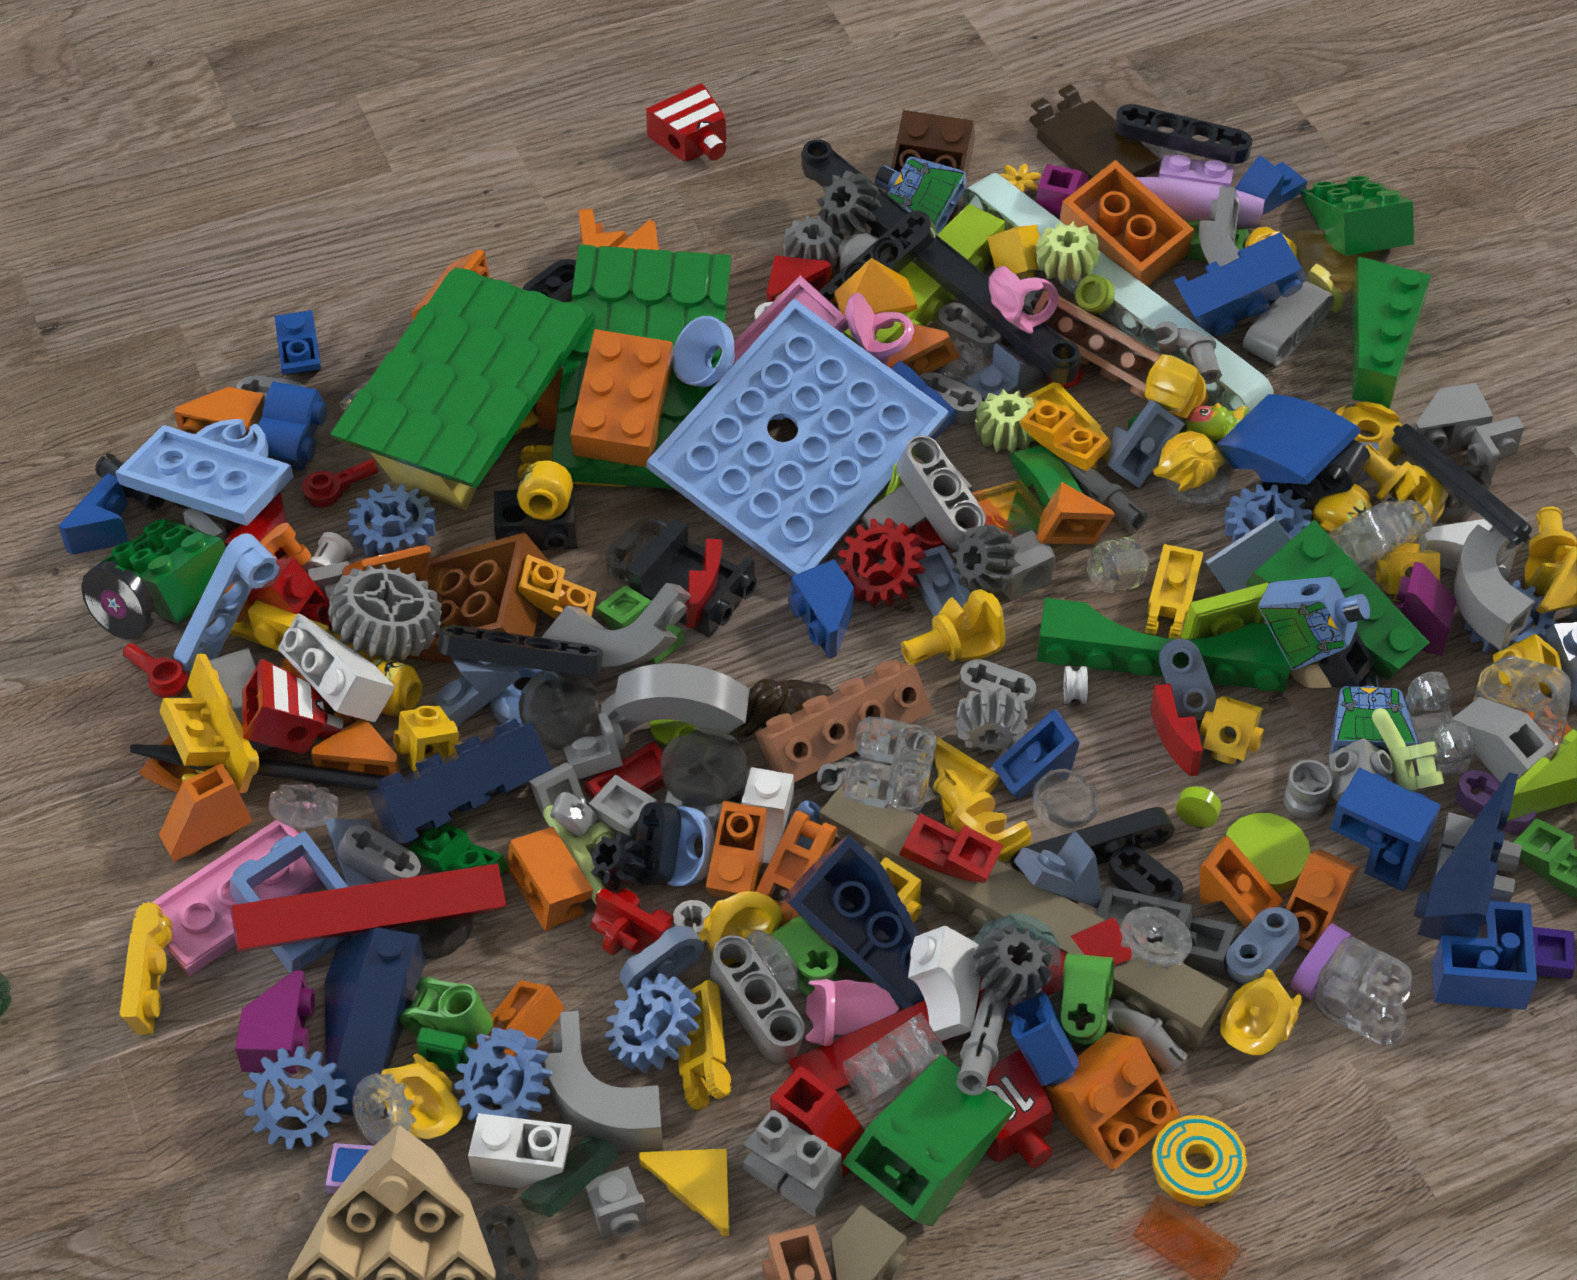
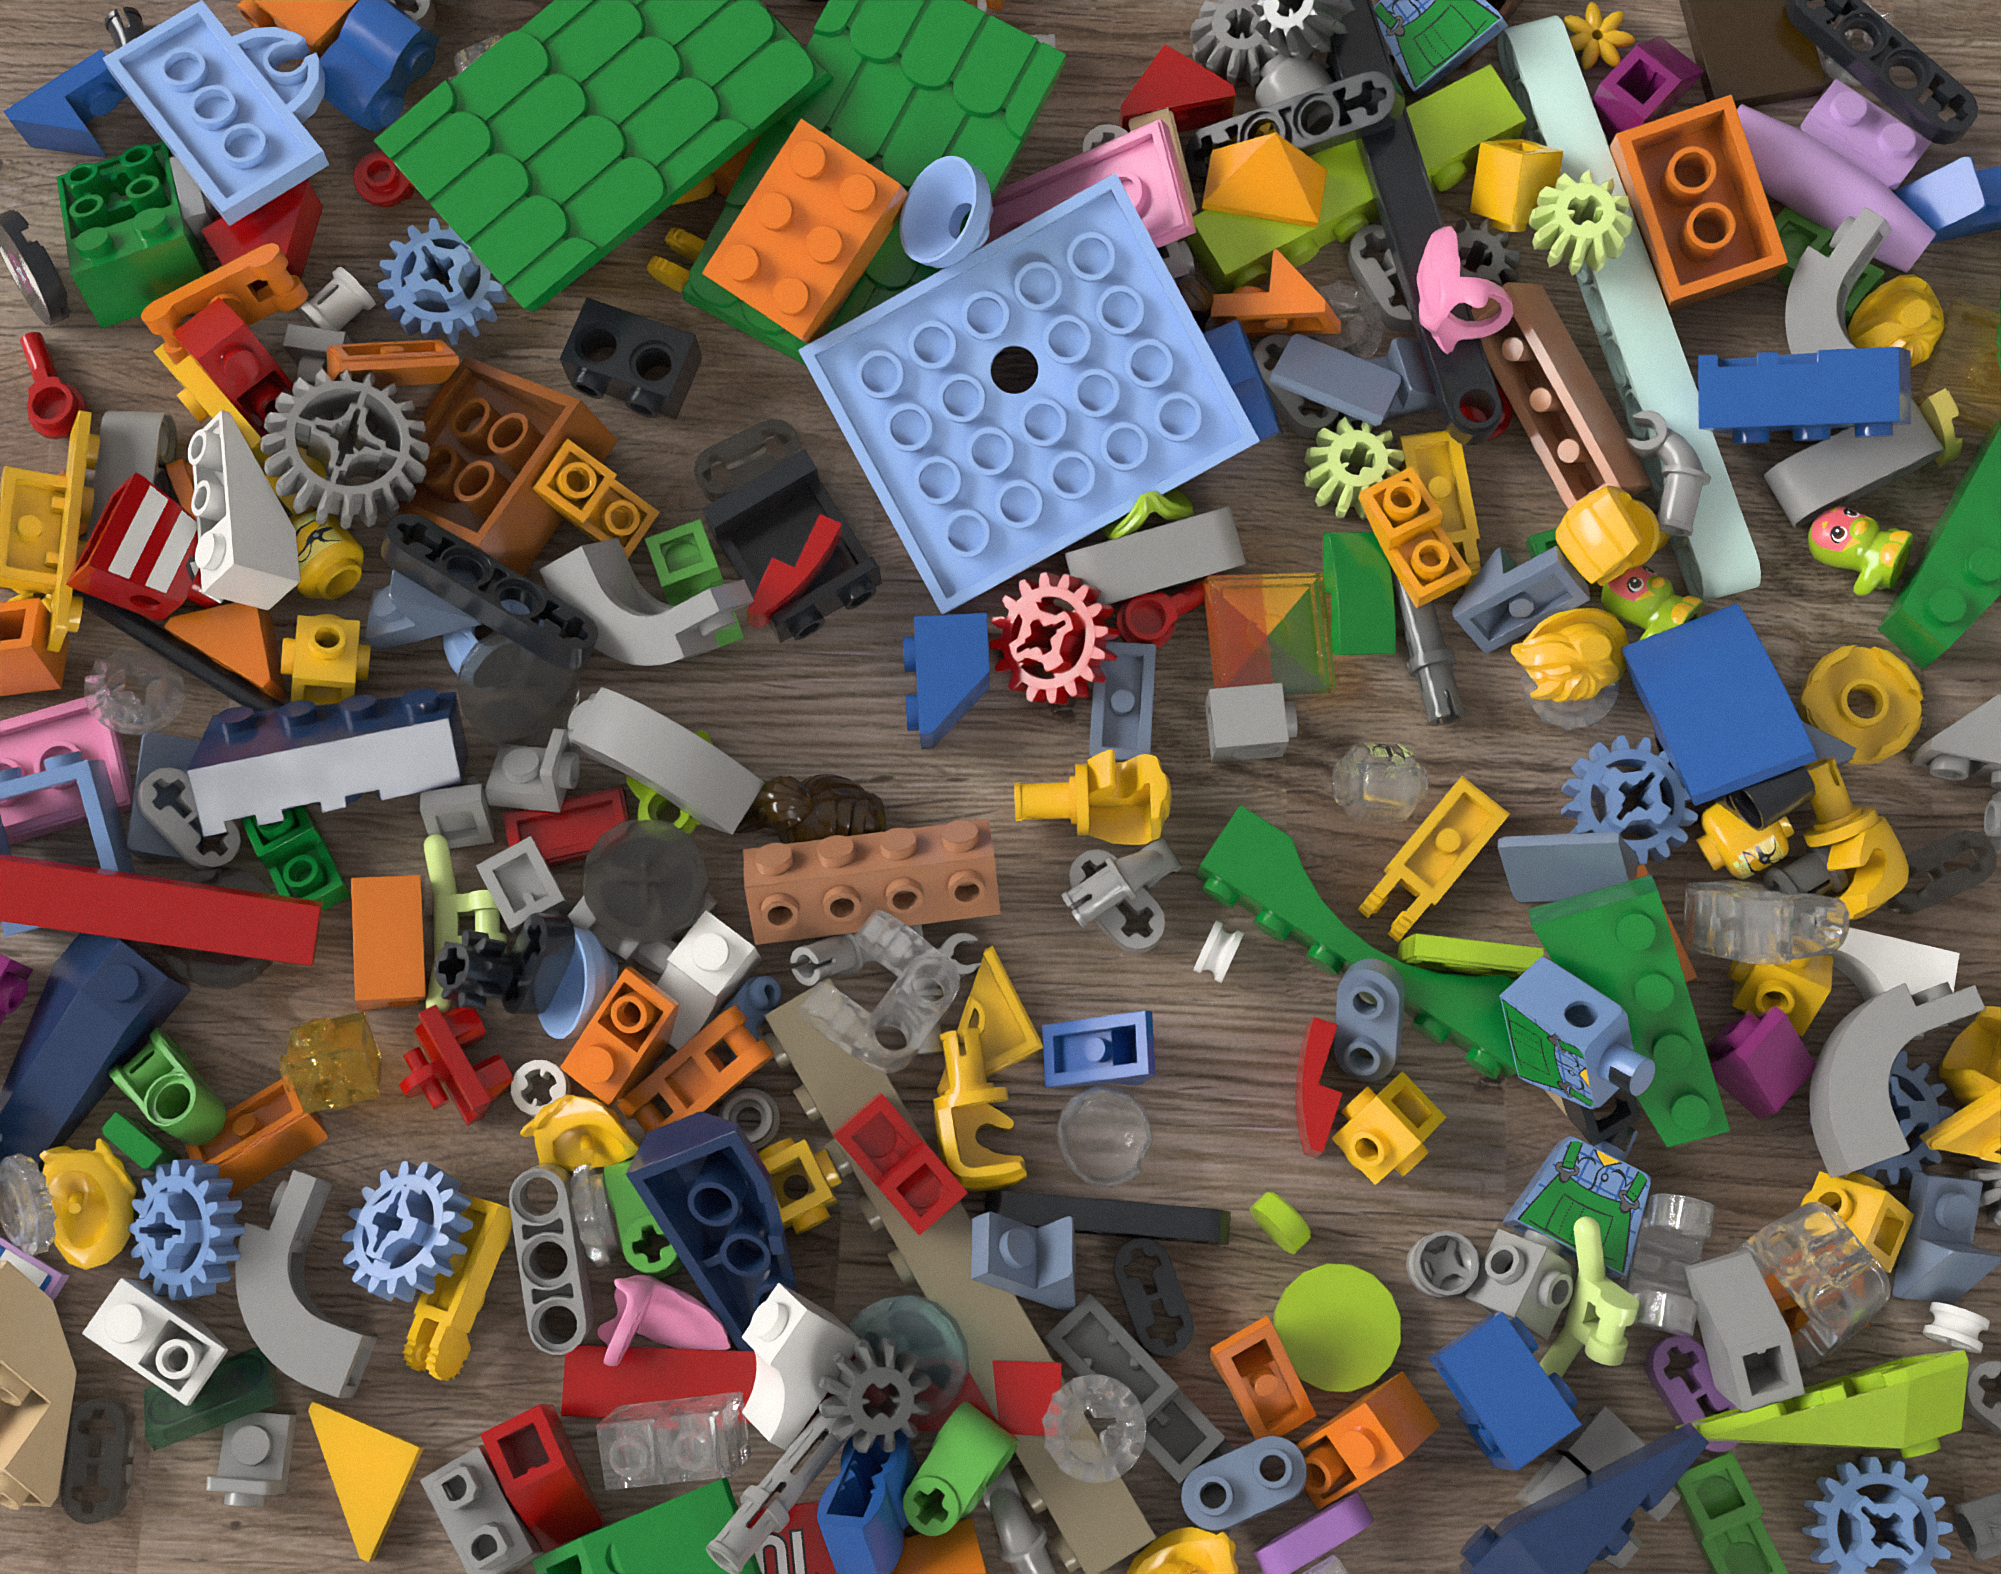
camera: 25 degrees right, 25 degrees up
(242, 563) = (154, 327): light blue beam -> none
(545, 490) = (641, 339): yellow head -> none
(550, 950) = (332, 1063): none -> clear yellow brick
(573, 813) = (450, 870): light grey piece -> none
(668, 956) = (444, 1145): sand blue plate -> none
(865, 325) = (1209, 240): bright pink piece -> none
(938, 474) = (1199, 597): light grey beam -> none
(973, 376) = (1336, 379): none -> sand blue slope
(985, 558) = (1186, 711): dark grey gear -> none
(991, 719) = (1068, 968): light grey gear -> none
(994, 664) = (1121, 880): none -> light grey piece
(1073, 518) = (1347, 681): orange slope -> none
(1094, 293) = (1589, 304): lime tile -> none
(1315, 355) = (1856, 543): none -> lime animal
(1462, 484) = (1927, 895): black axle -> none

